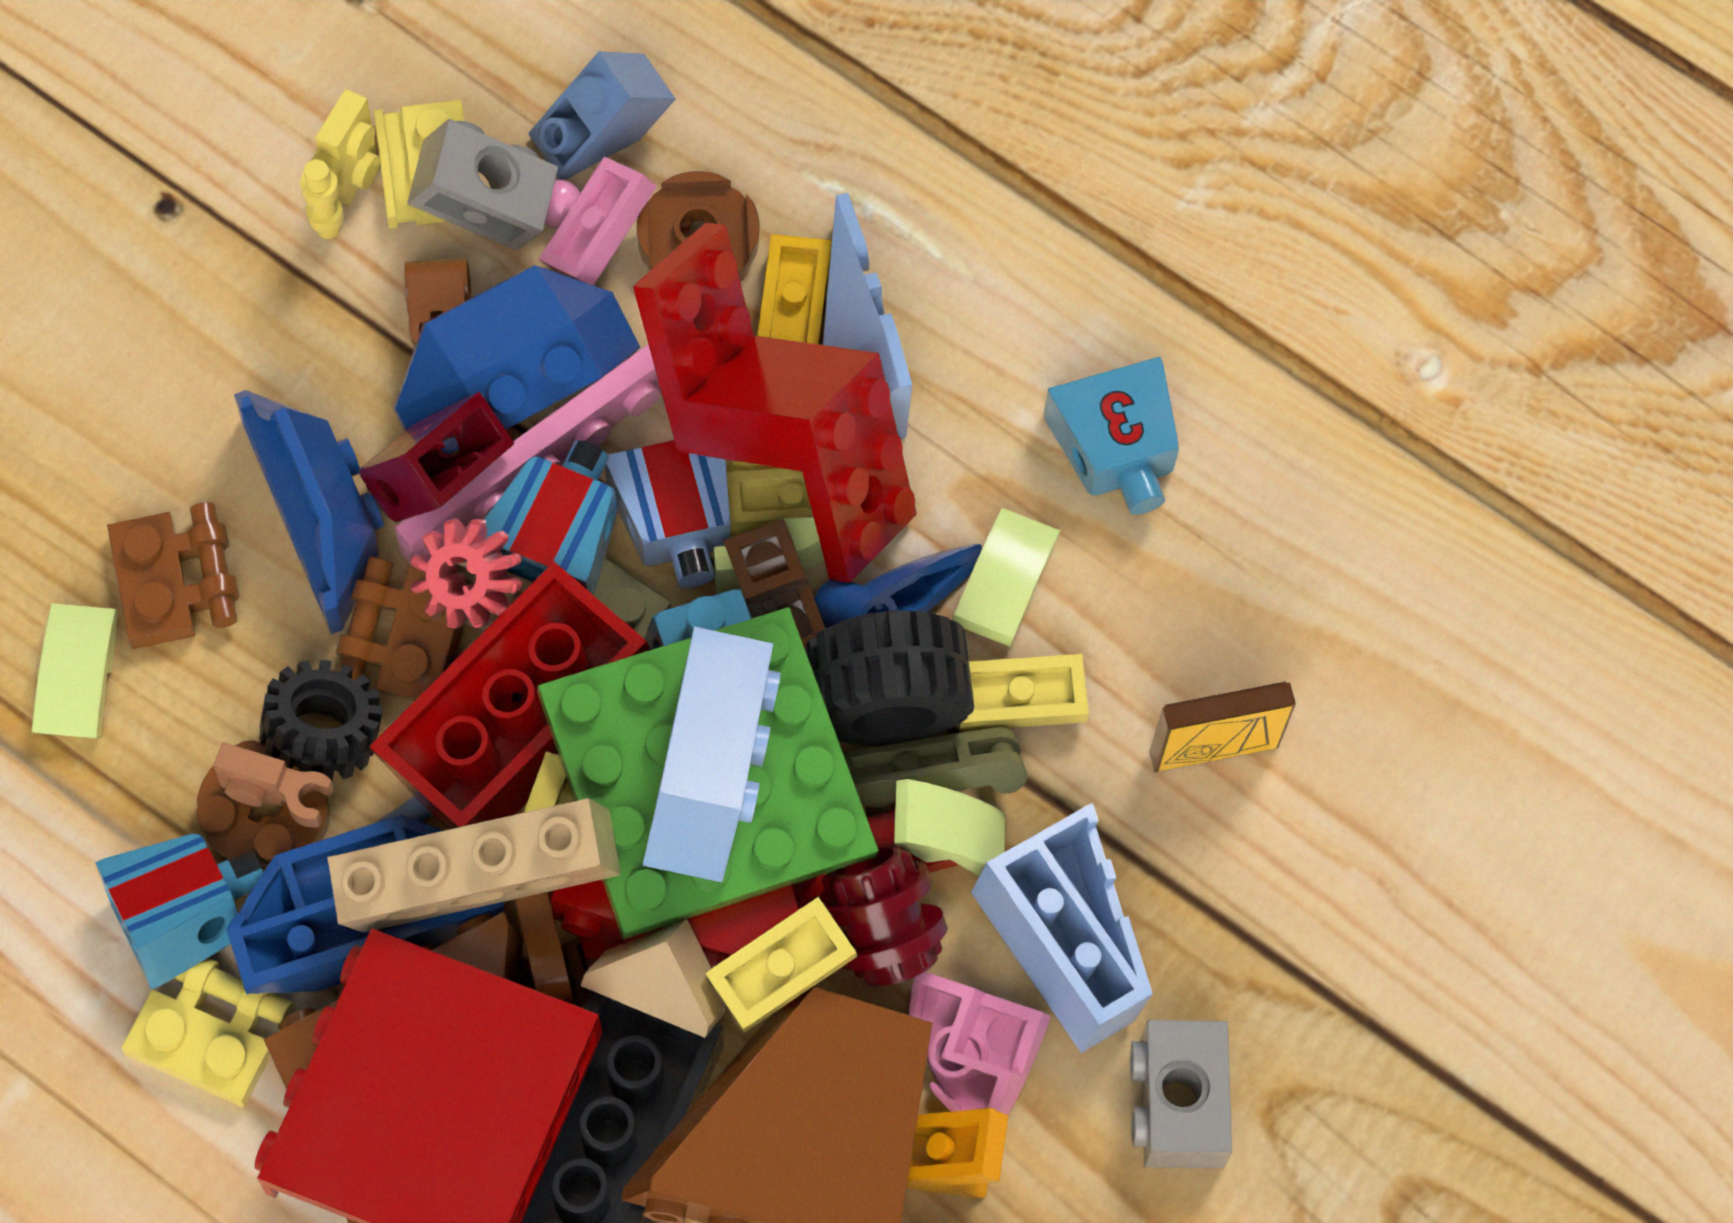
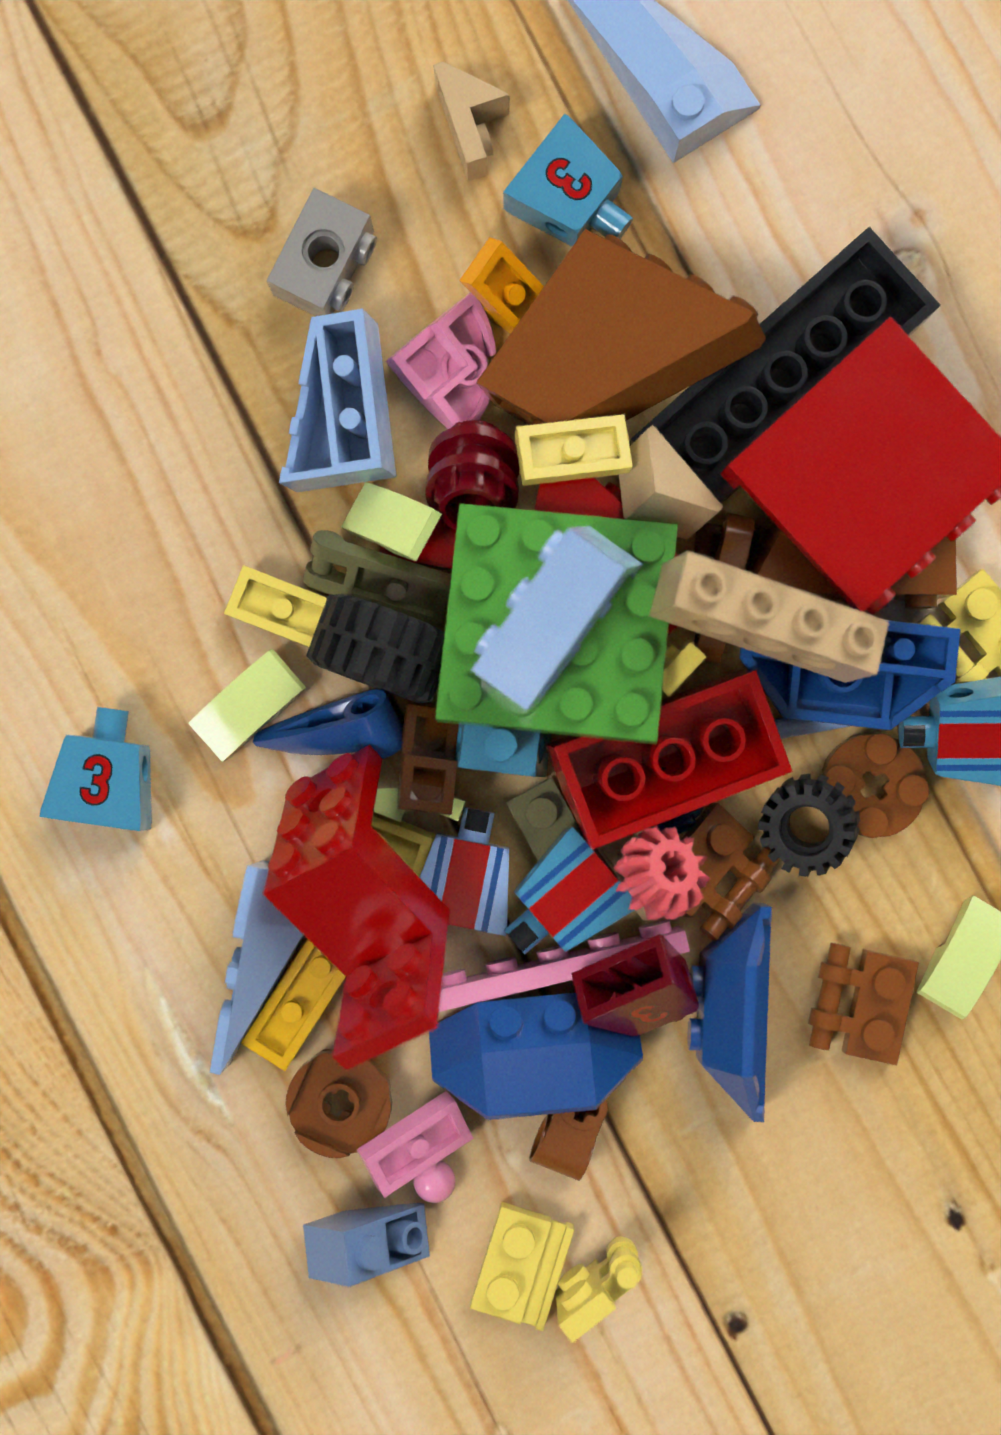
camera: 145 degrees left, 20 degrees up
(261, 778) = (880, 793): nougat plate -> none
(451, 188) = (519, 1224): light grey brick -> none
(1222, 726) = (151, 498): tile -> none

